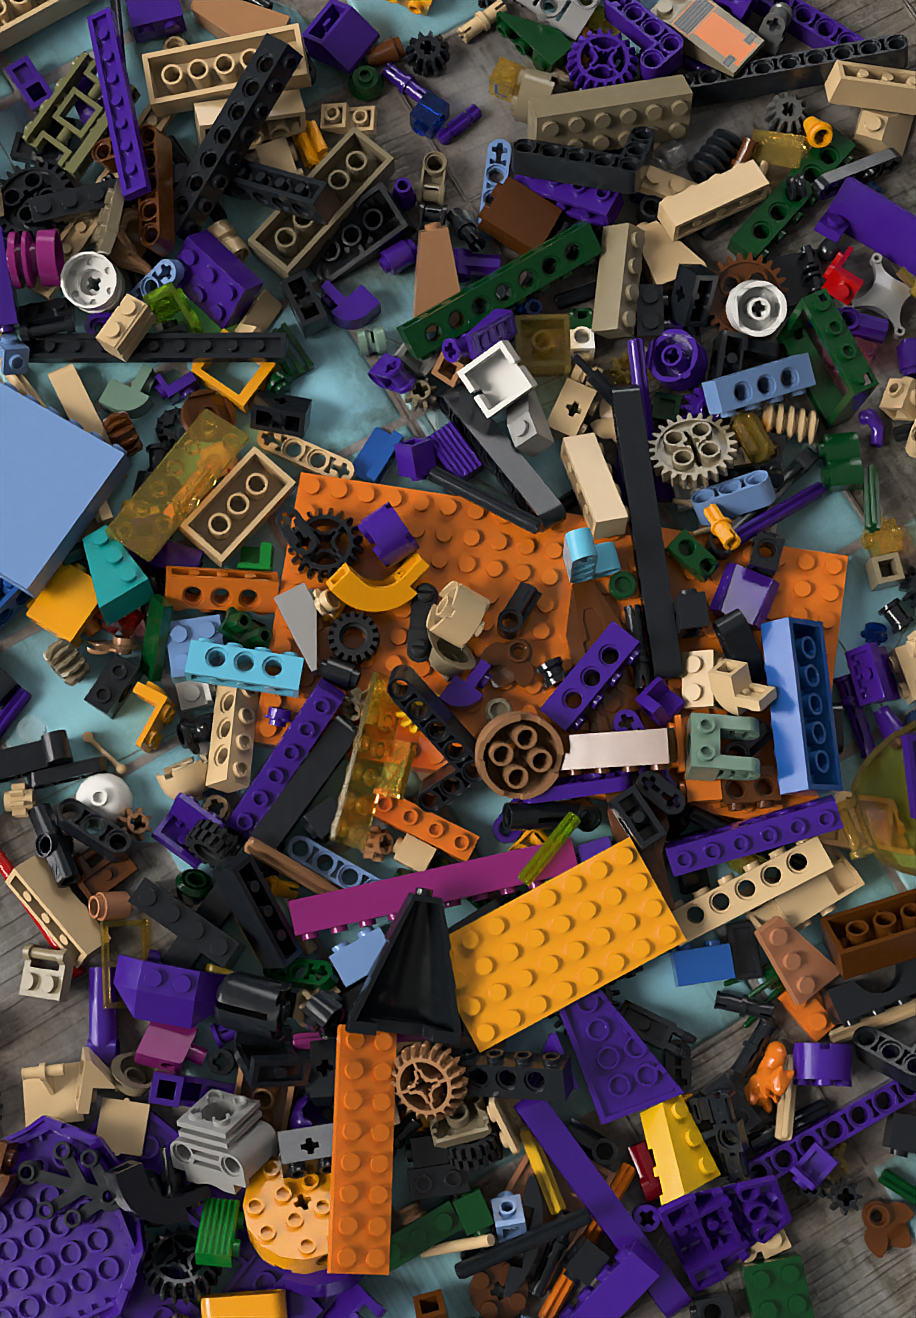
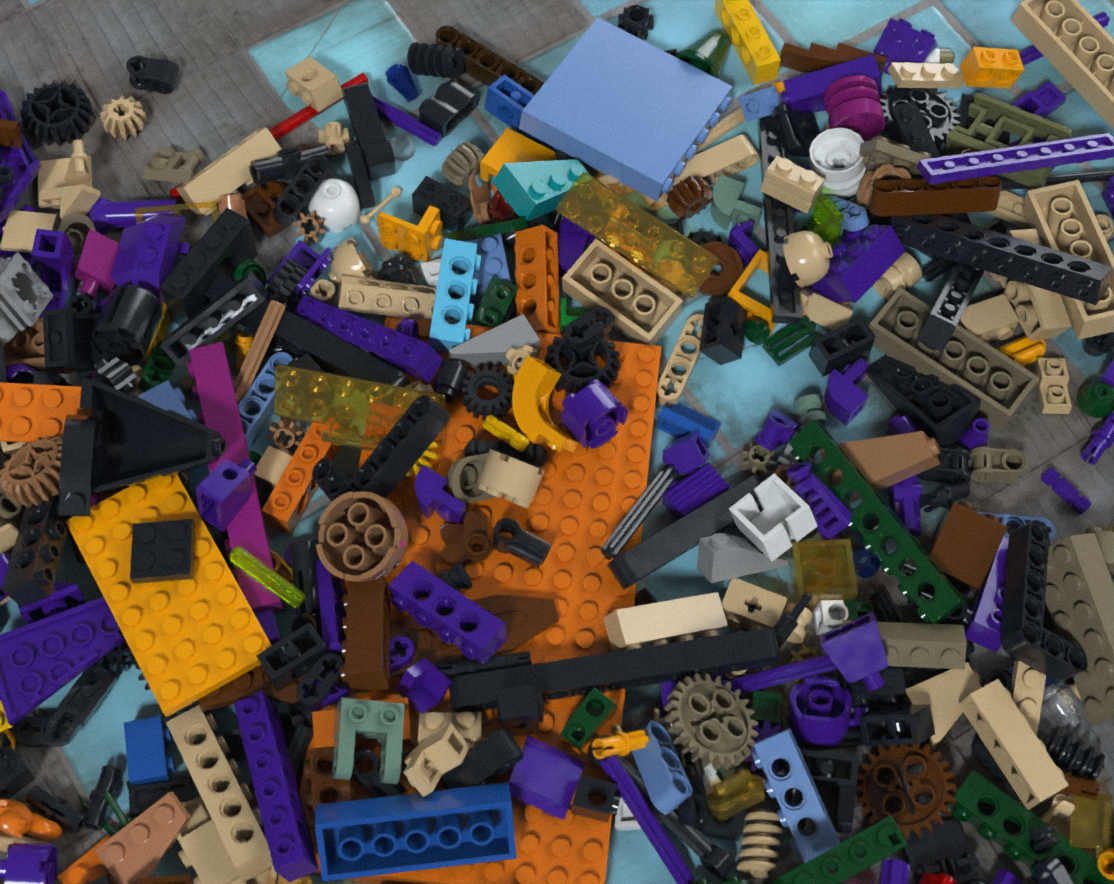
camera: 85 degrees right, 15 degrees down
(219, 318) = (807, 256): none -> tan cylinder
(401, 620) = (505, 433): none -> yellow axle
(429, 115) = (1070, 458): clear blue brick -> none
(430, 1034) = (77, 465): none -> black arch
(474, 893) = (225, 492): none -> dark purple torso
(496, 707) = (417, 530): dark tan plate -> none
(525, 948) = (162, 551): none -> black plate
(585, 559) = (574, 597): medium azure beam -> none
(622, 585) = (553, 649): dark green tile -> none
(634, 316) = (857, 651): none -> dark purple torso
(767, 318) = (870, 779): white brick -> none

